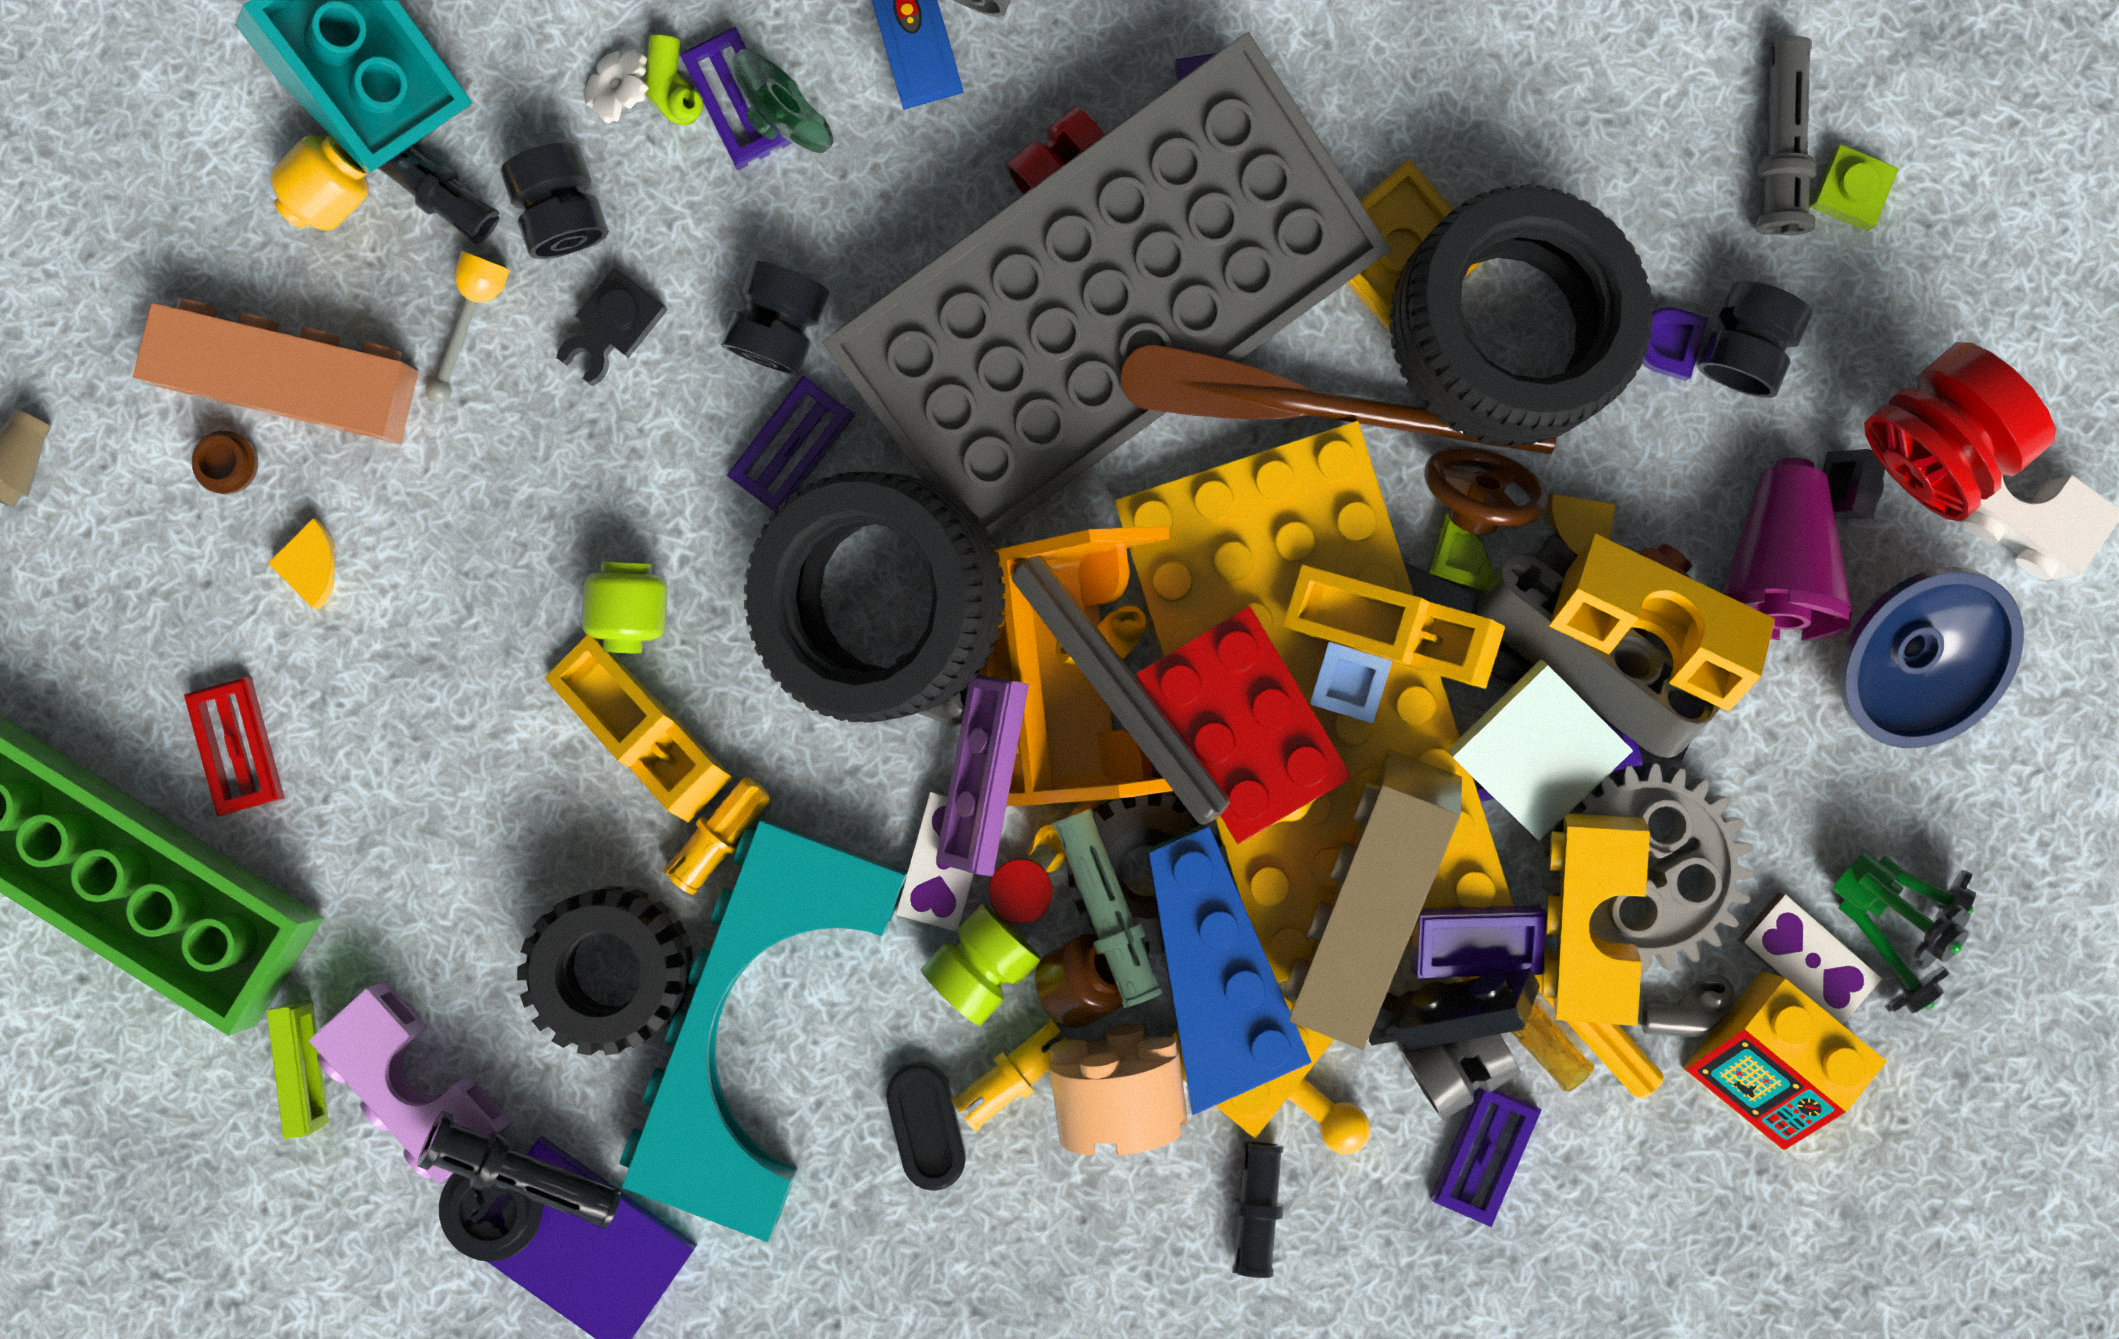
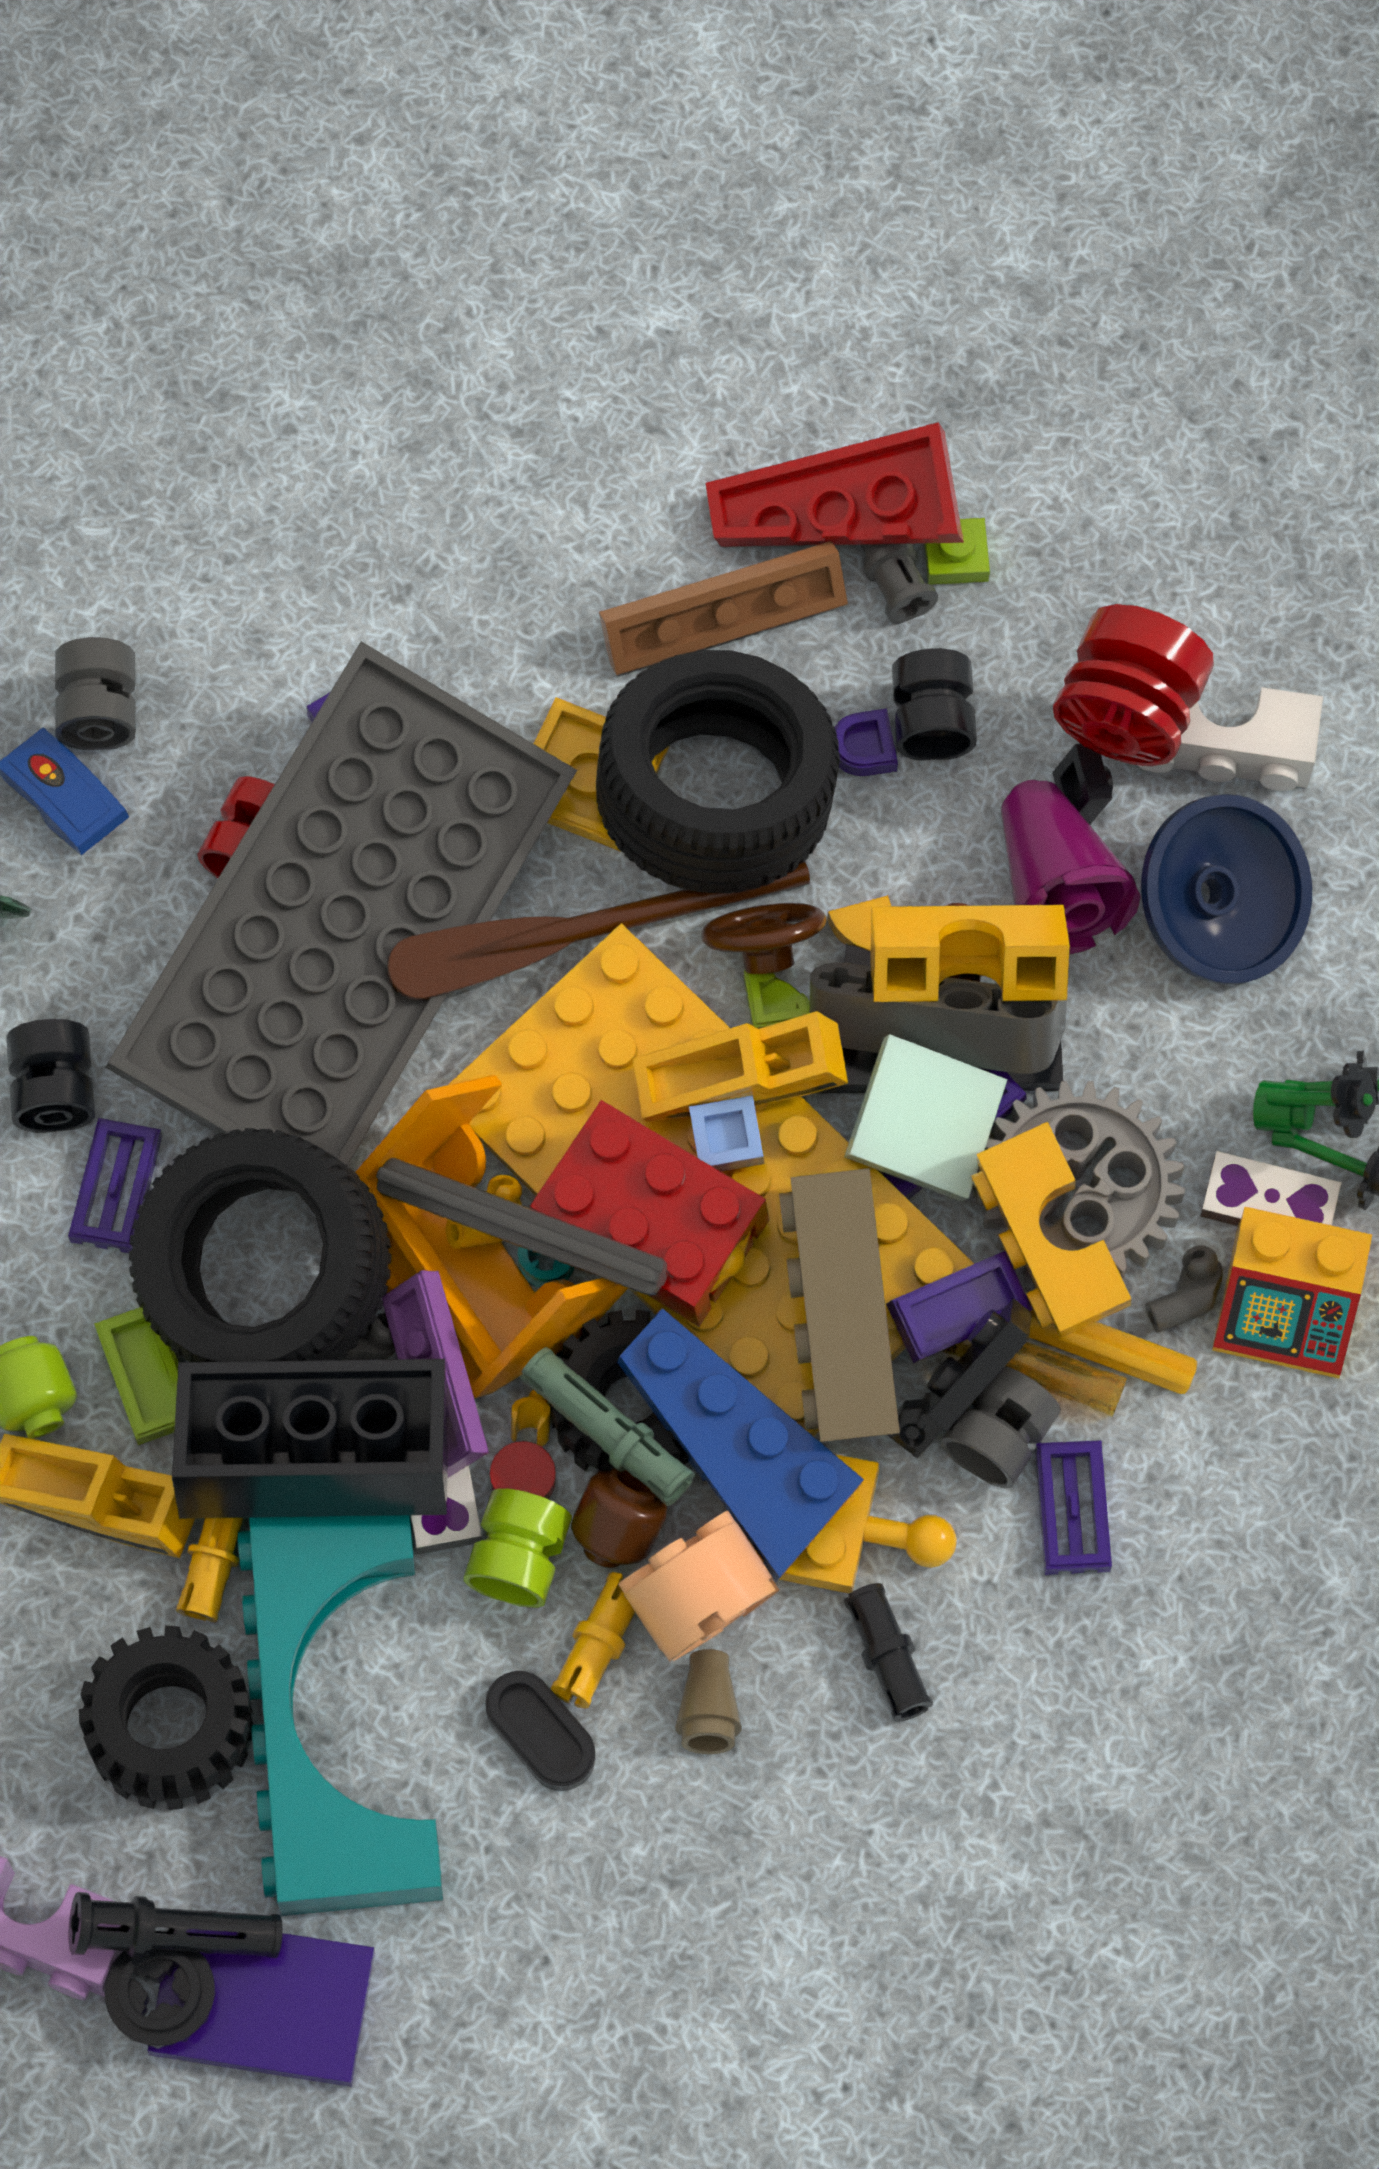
camera: 30 degrees left, 20 degrees down
(729, 658) = (142, 1372): none -> lime tile
(836, 795) = (311, 1438): none -> black slope
(1078, 1184) = (708, 1707): none -> dark tan cone
(1609, 145) = (723, 607): none -> medium nougat plate
(1791, 92) = (851, 495): none -> red wing

